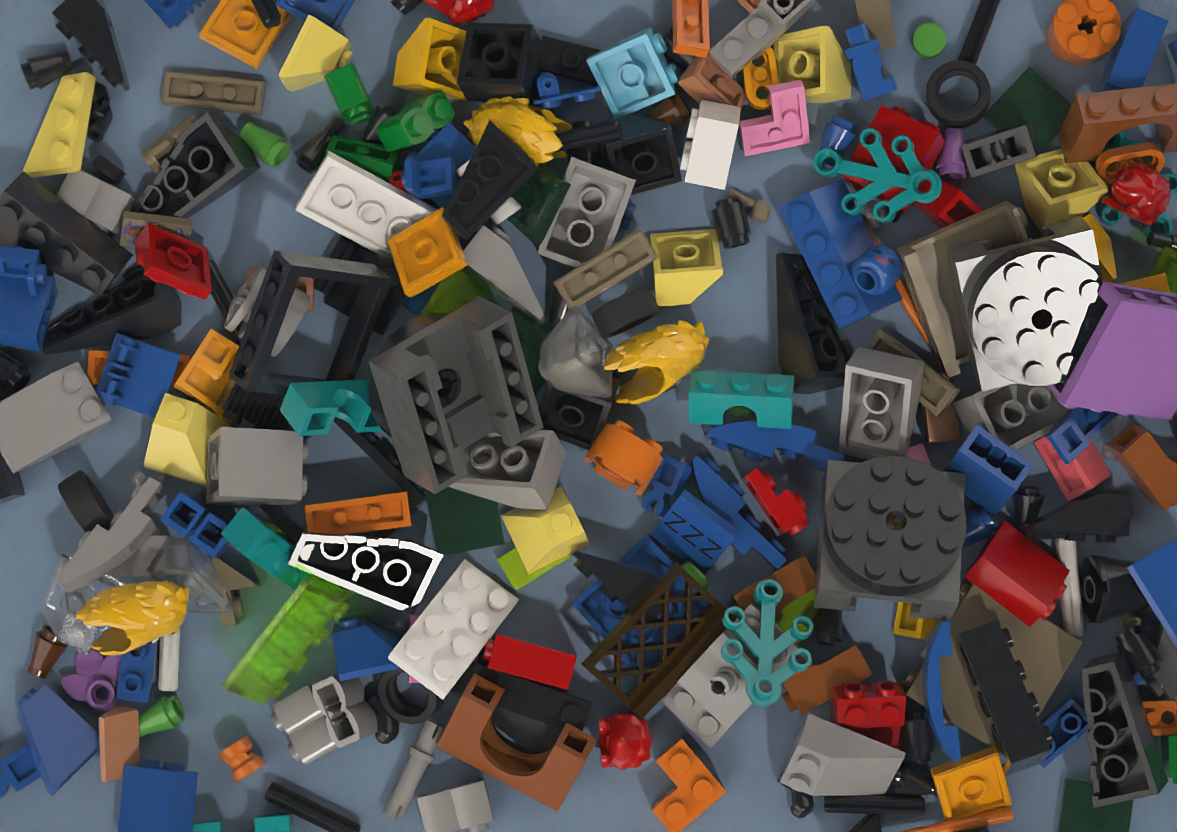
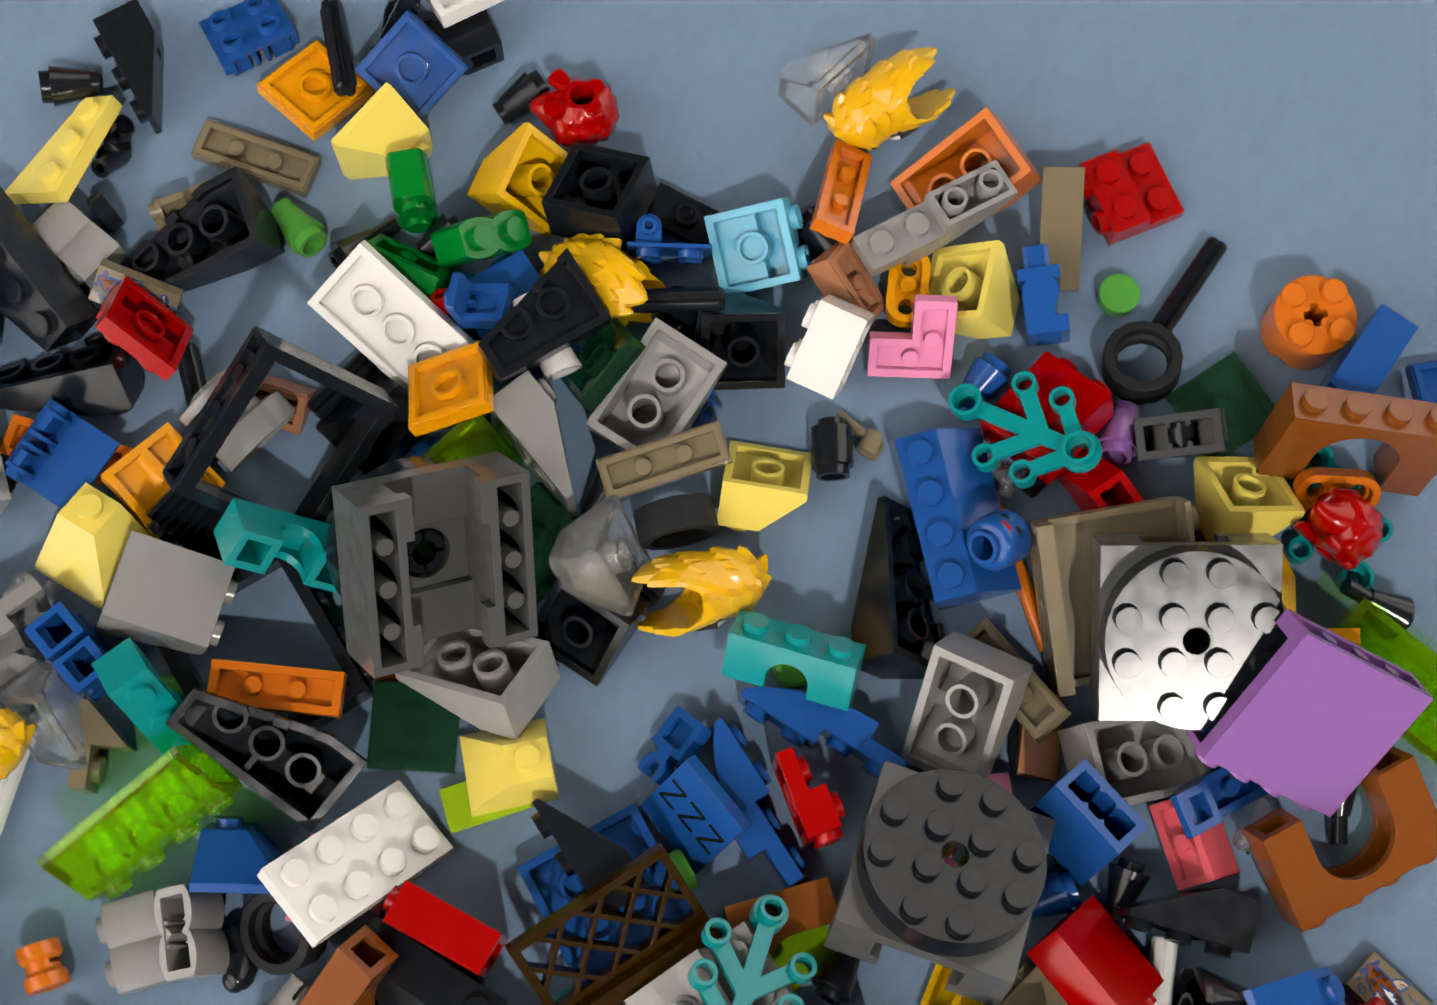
camera: 10 degrees right, 10 degrees down
(625, 457) = (631, 698): orange brick -> none
(671, 111) = (792, 299): reddish brown cone -> none

